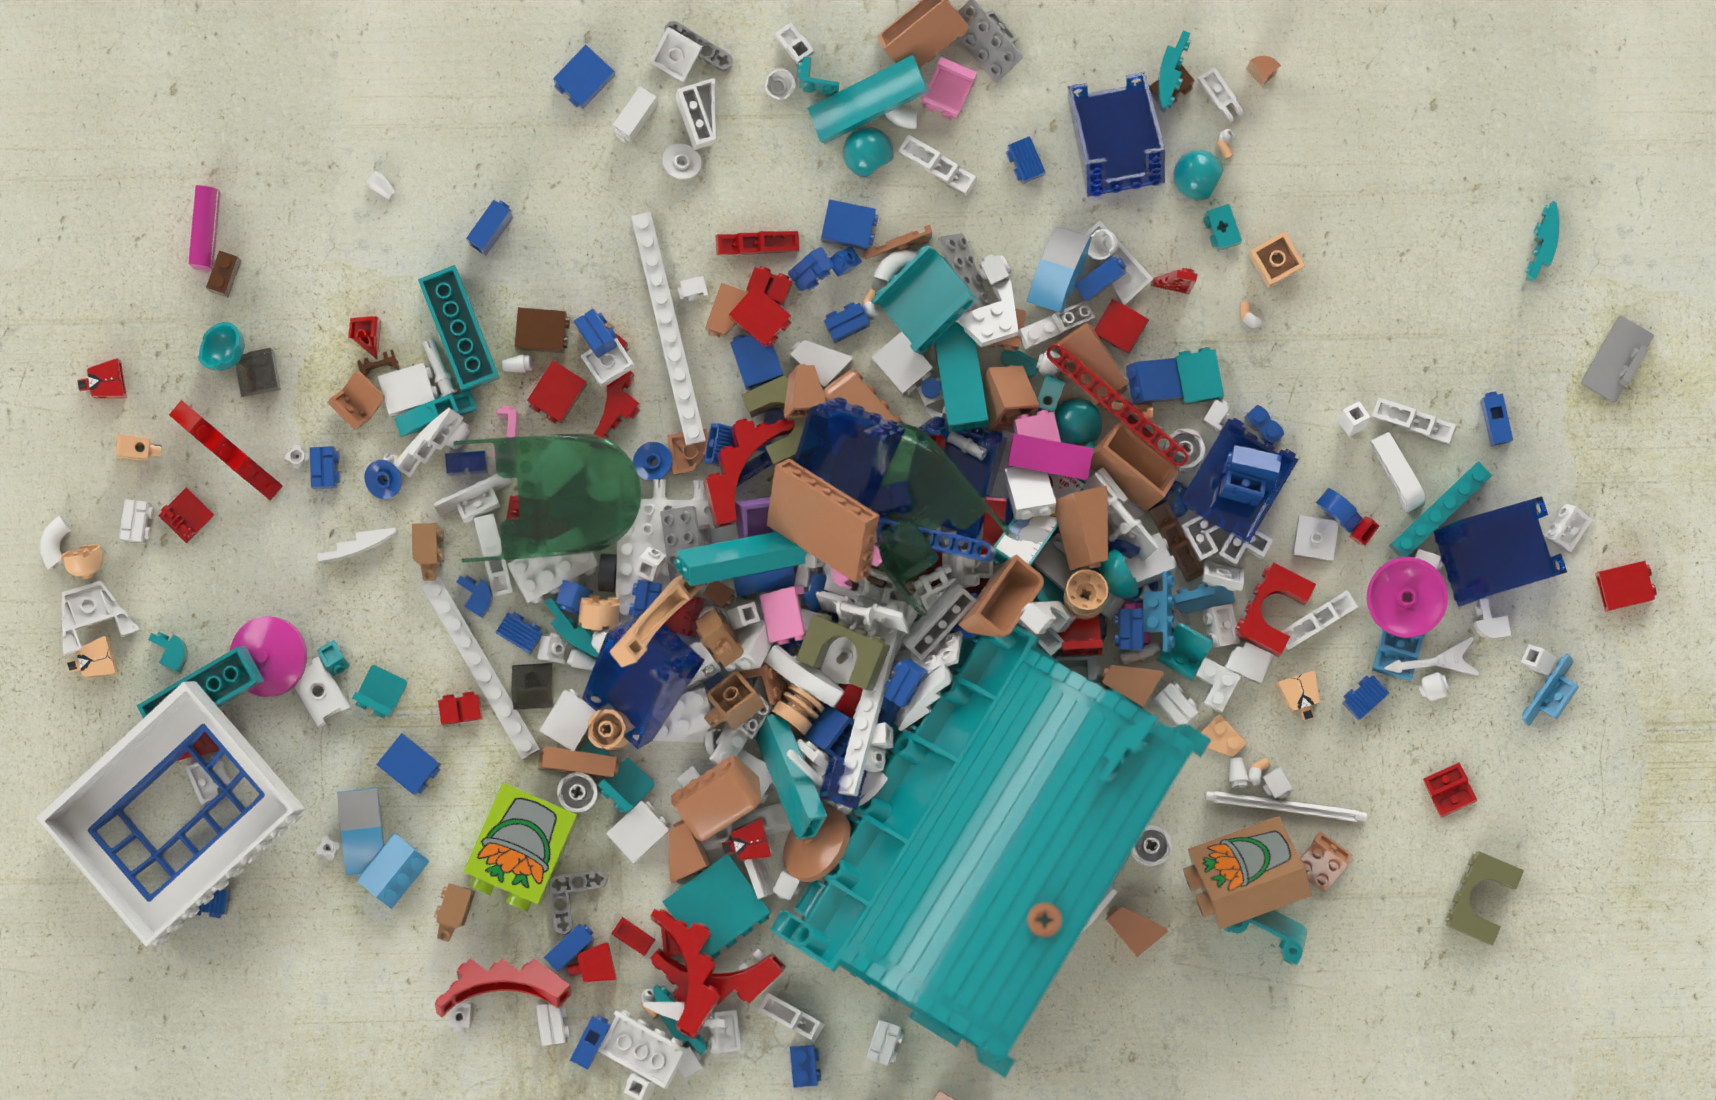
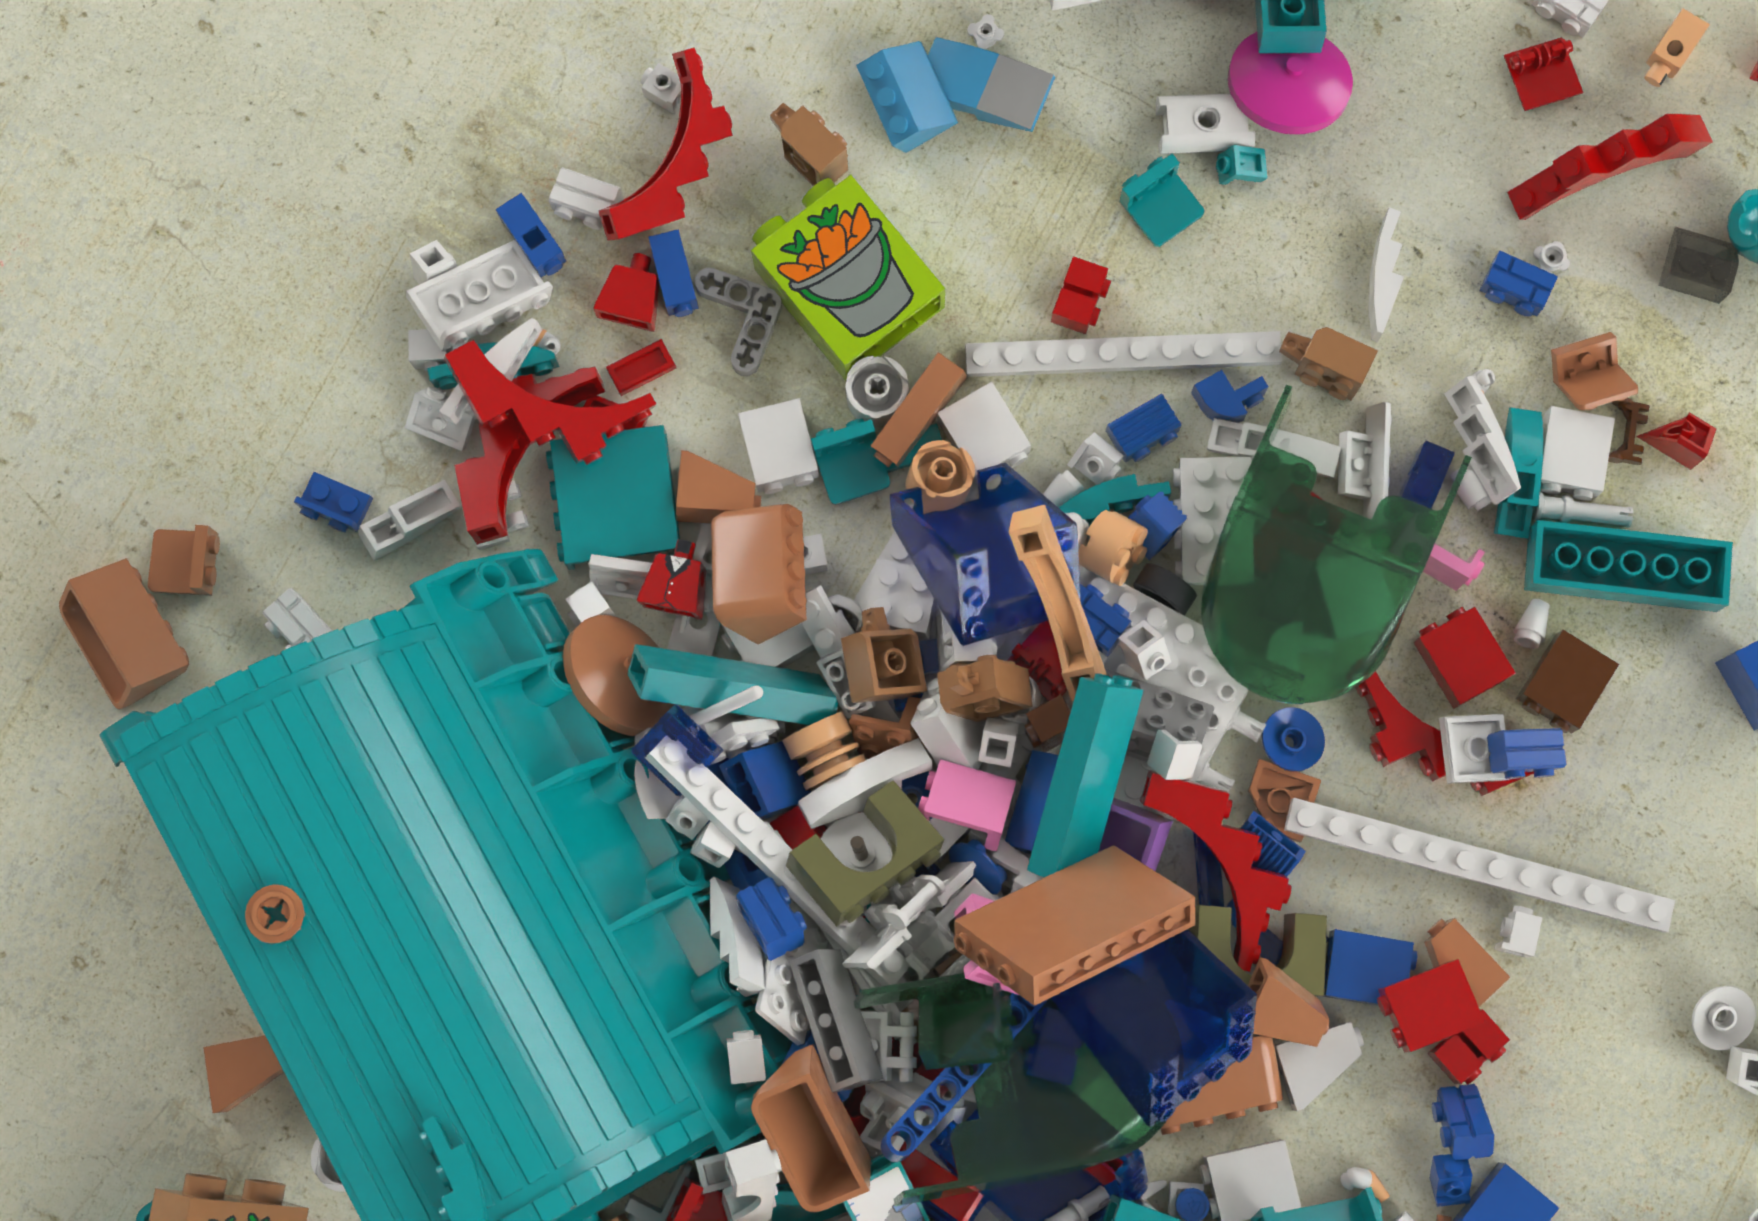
camera: 125 degrees right, 5 degrees down
(376, 482) = (1460, 354): blue dish -> none
(409, 764) = (1040, 190): blue brick -> none
(532, 686) = (1059, 407): clear smoke slope -> none
(704, 517) = (1172, 757): none -> white panel
(757, 243) = (1542, 1065): red slope -> none
(846, 322) = (1356, 1132): blue brick -> none
(984, 654) = (746, 1057): none -> white brick

